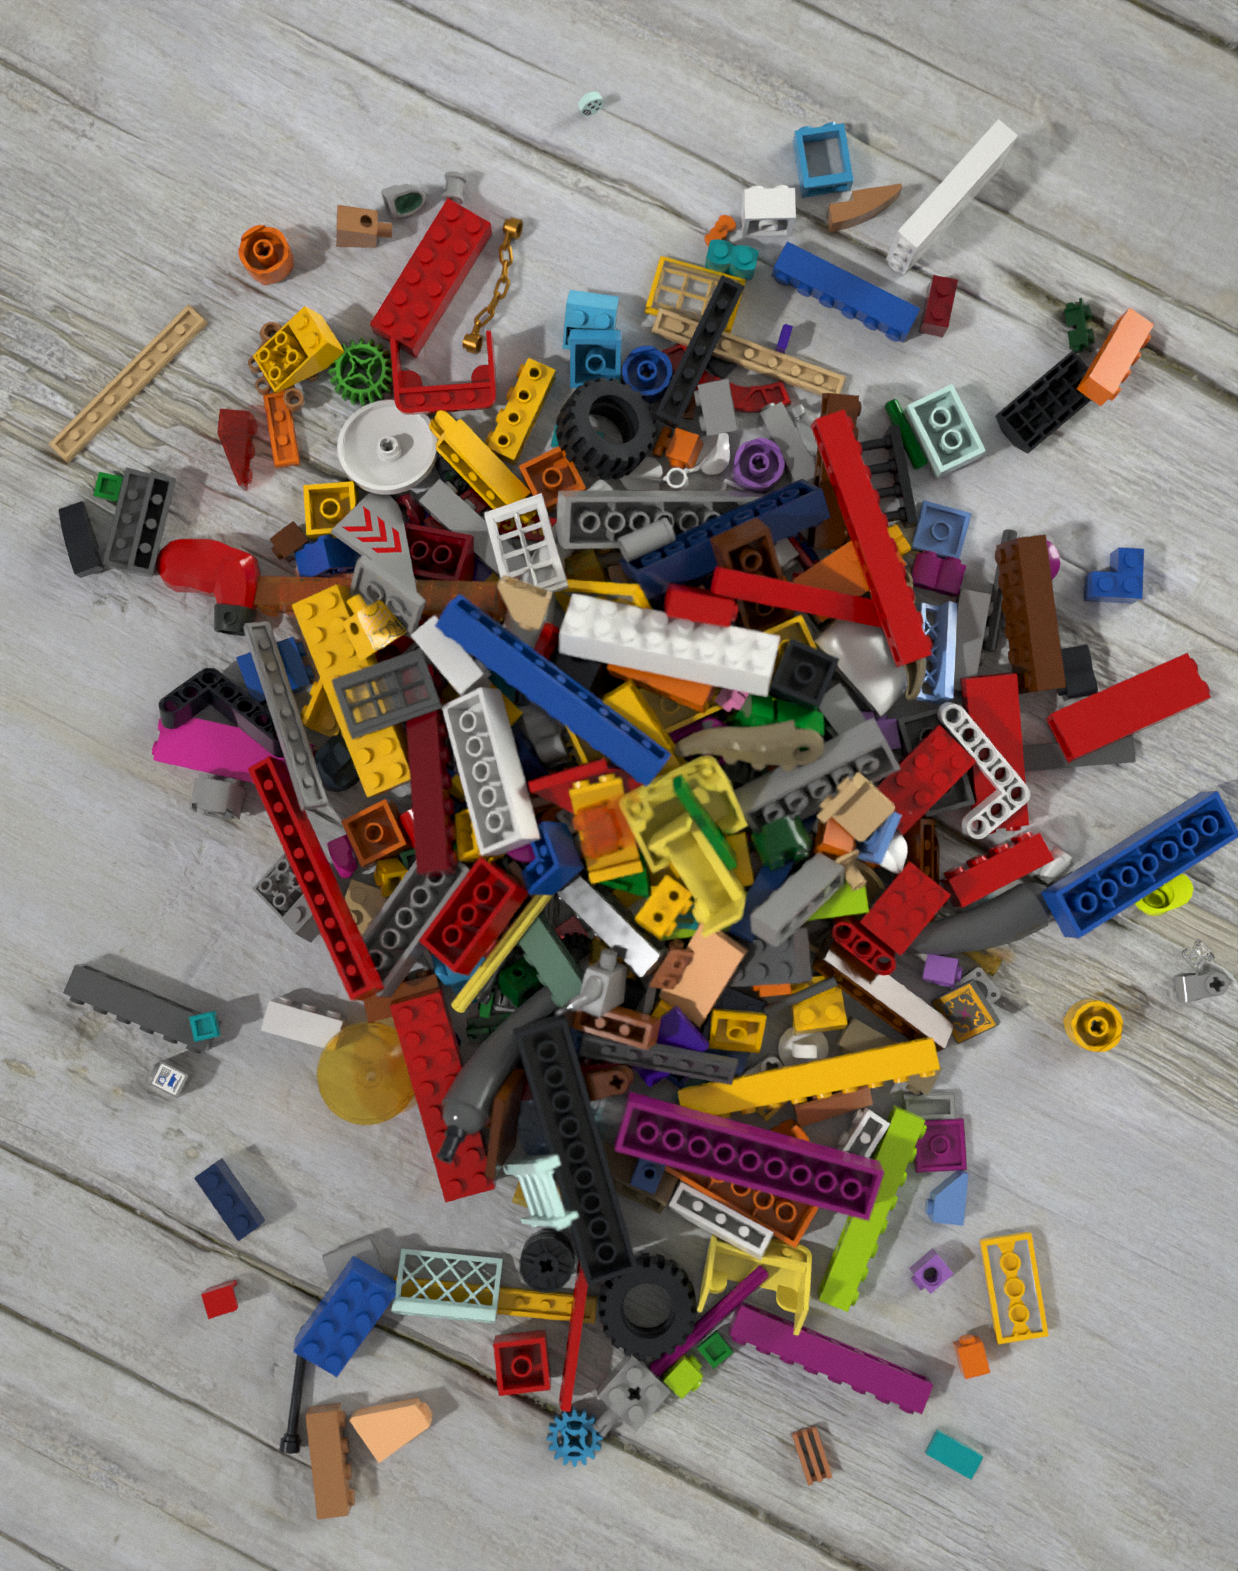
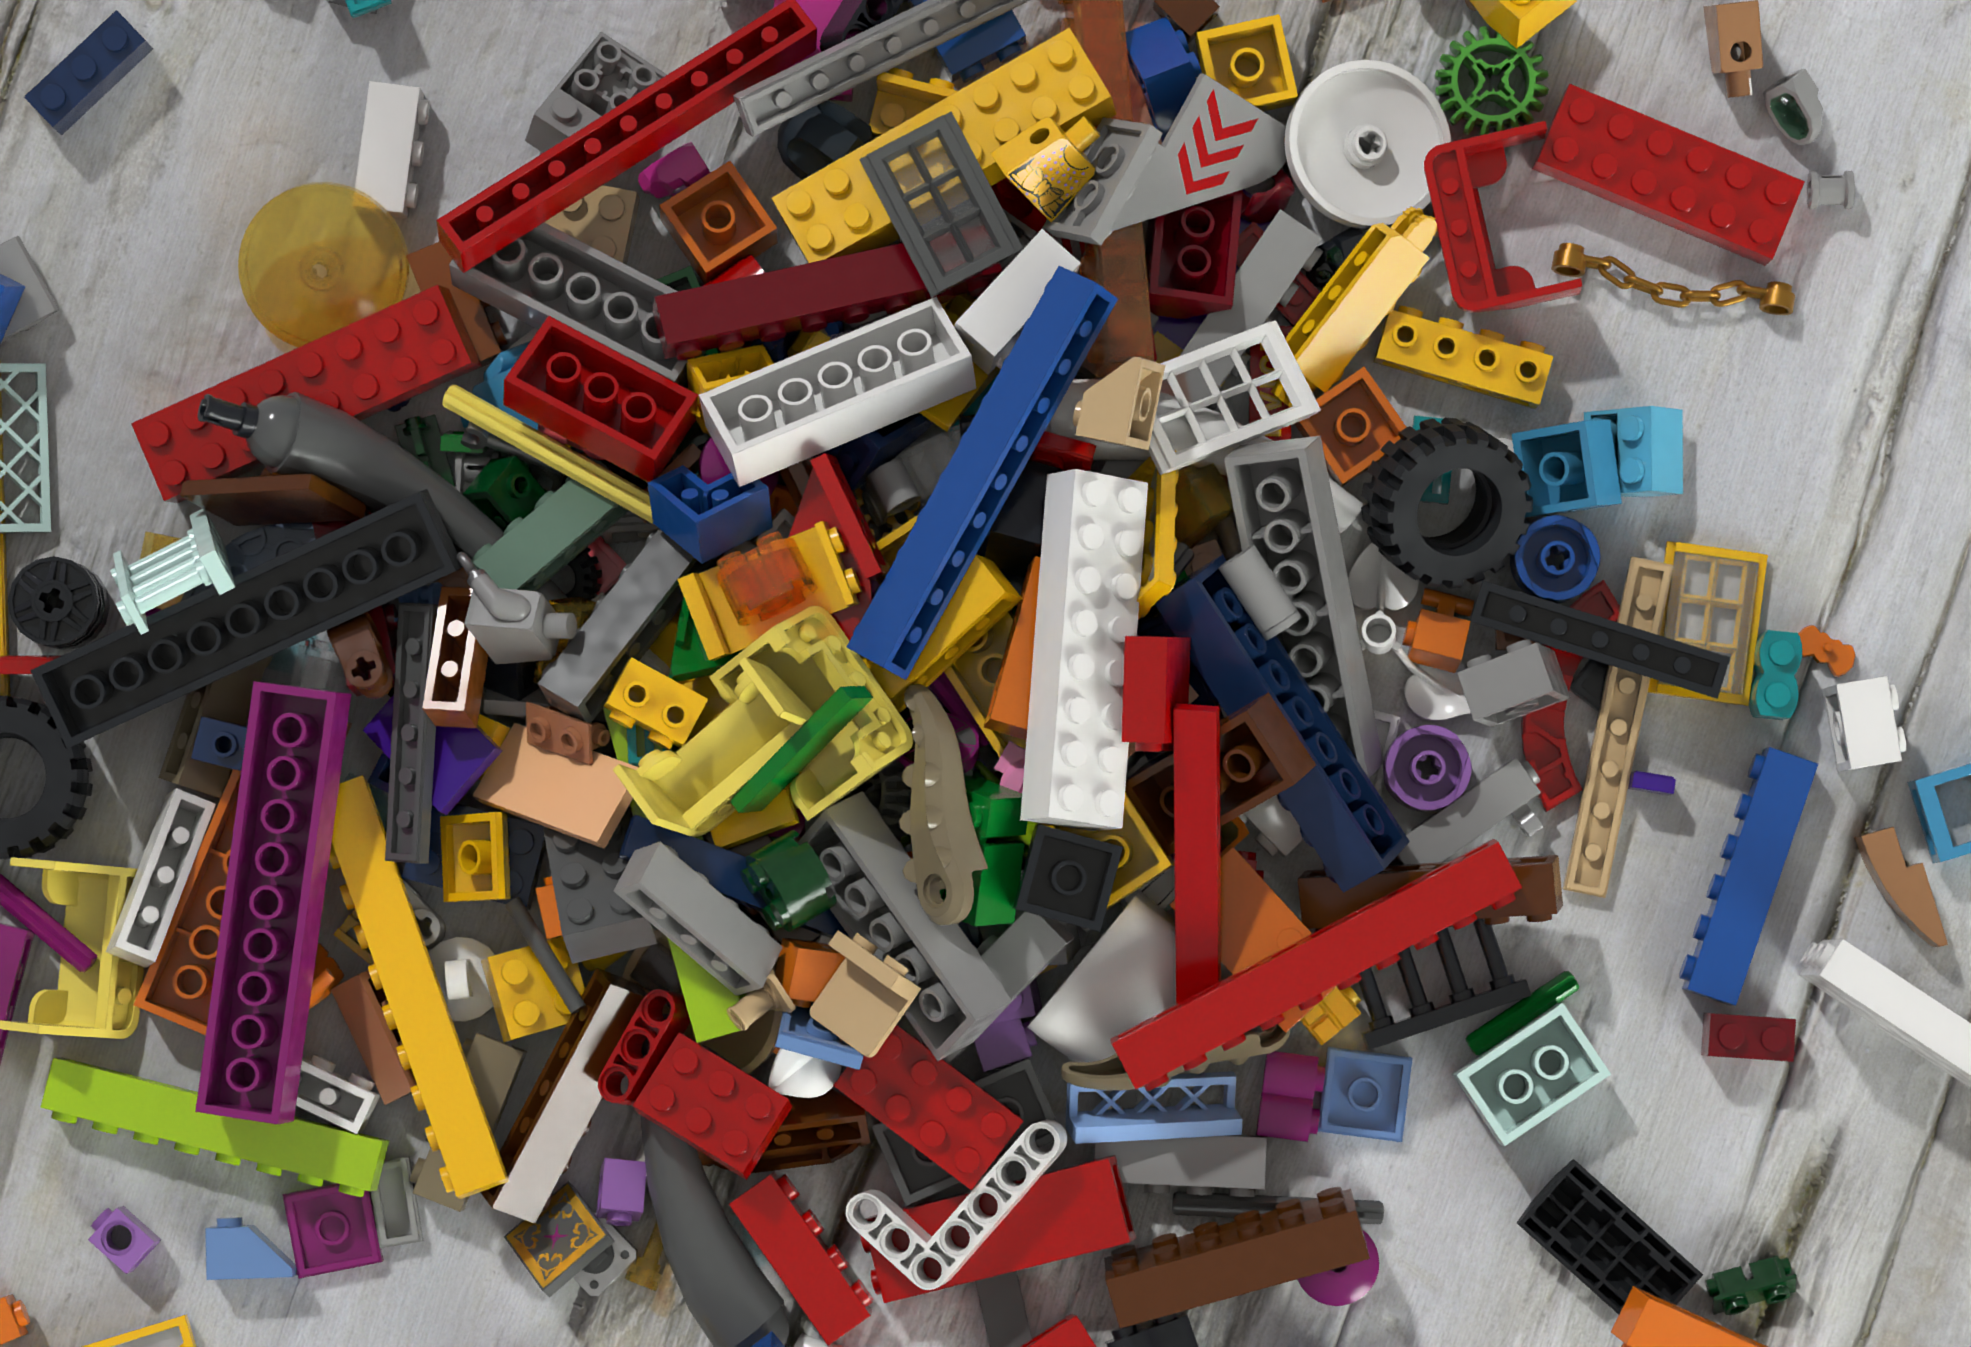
camera: 80 degrees right, 0 degrees up
(387, 875) = (653, 250): yellow brick -> none
(807, 556) = (1286, 872): red slope -> none

